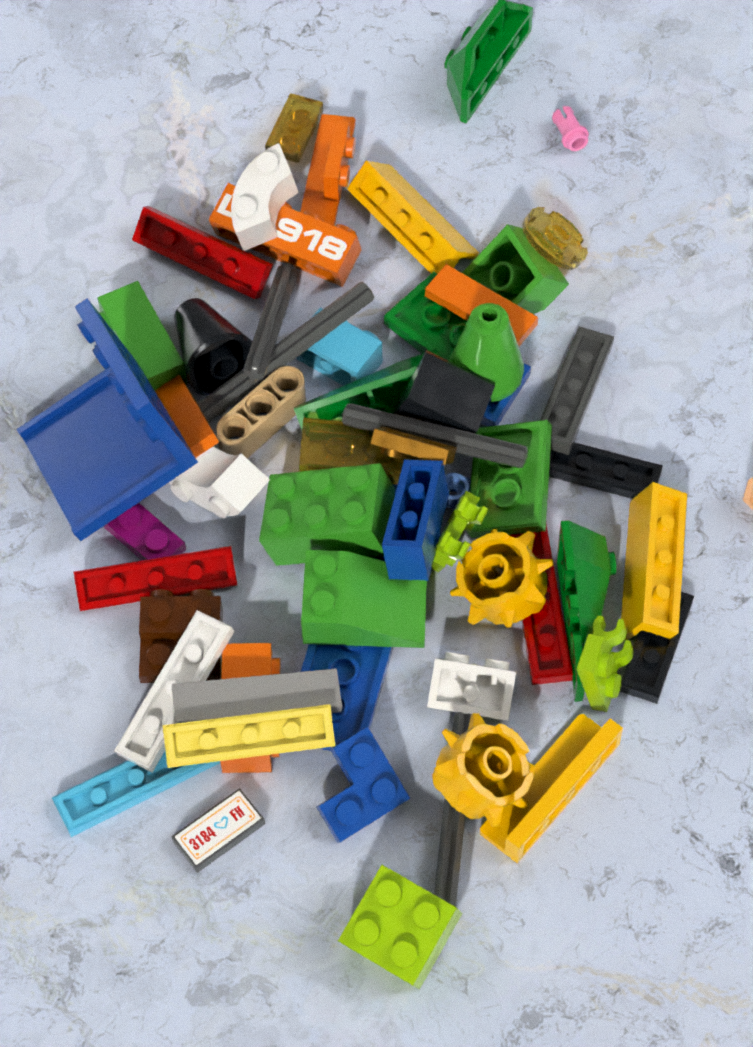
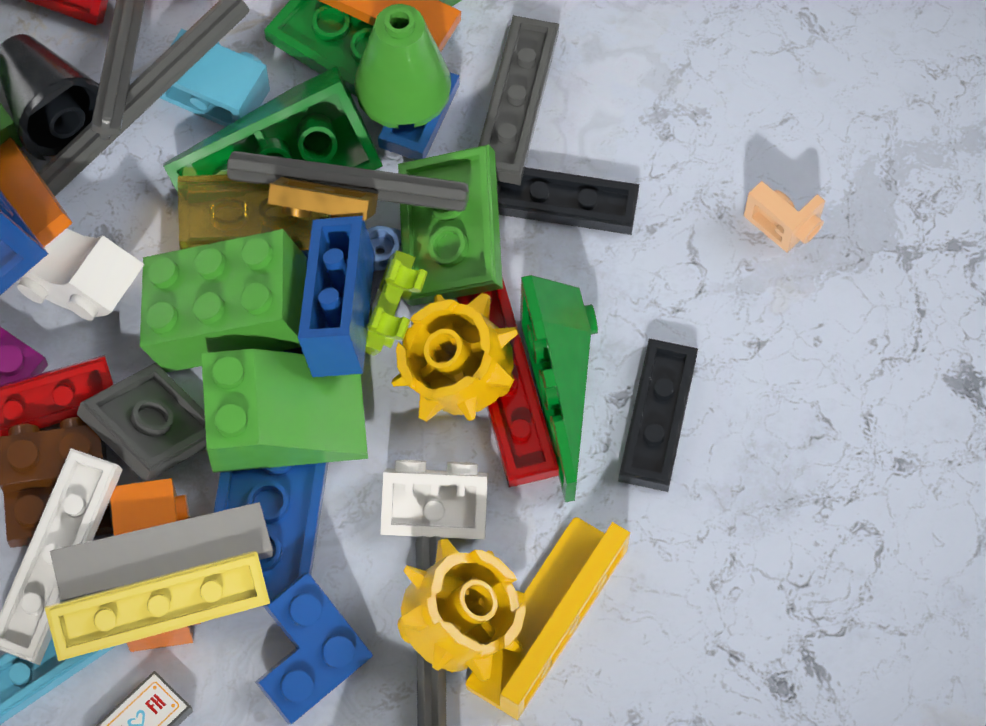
camera: 10 degrees left, 5 degrees up
(257, 599) = (147, 421): none -> dark grey tile
(265, 398) = (124, 155): tan beam -> none
(445, 395) = (355, 127): black slope -> none
(599, 665) = (591, 453): lime plate -> none
(654, 562) = (643, 312): yellow panel -> none

